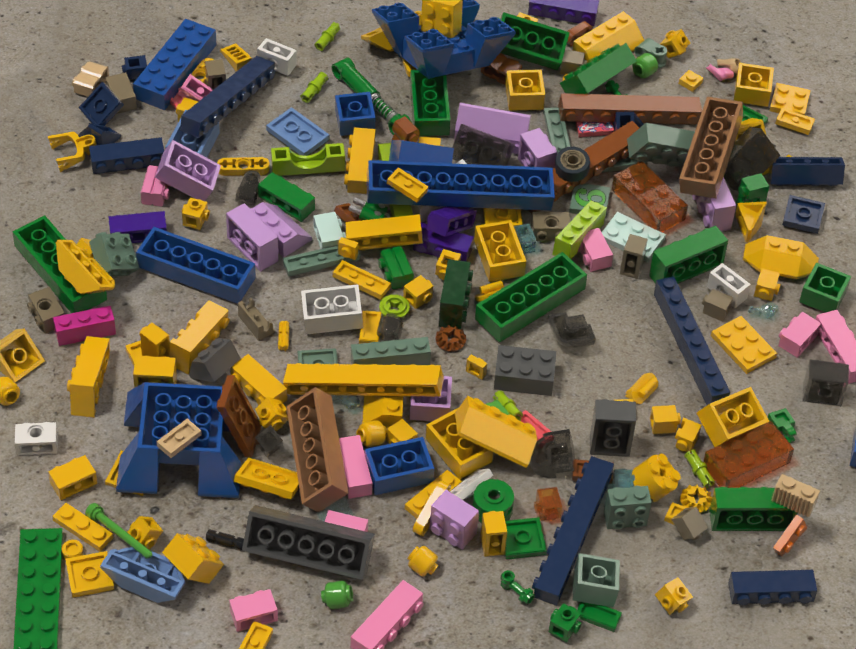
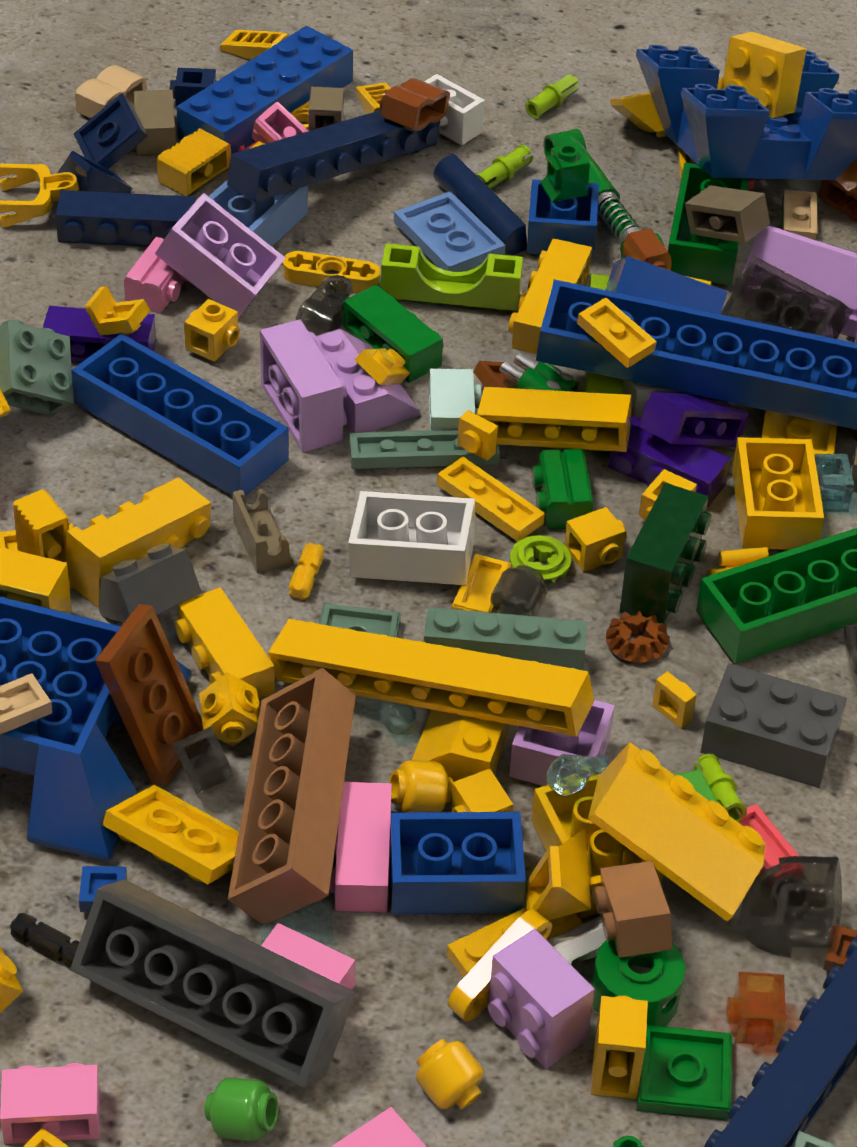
camera: 15 degrees right, 5 degrees down
(147, 217) = (114, 316): none -> yellow bracket
(150, 114) = (193, 162): none -> yellow brick
(162, 32) = (251, 42): none -> yellow slope
(240, 510) = (95, 877): none -> blue plate
(261, 61) = (414, 104): none -> dark orange brick
(290, 218) = (383, 365): none -> yellow plate
(309, 110) = (482, 202): none -> dark blue brick
(353, 90) = (566, 173): none -> green window
(442, 101) = (727, 213): none -> dark tan brick
(442, 413) = (571, 772): none -> clear light blue animal
(449, 465) = (561, 880): none -> yellow slope
(474, 88) = (800, 213): none -> tan plate
(486, 471) = (634, 909): none -> medium nougat brick

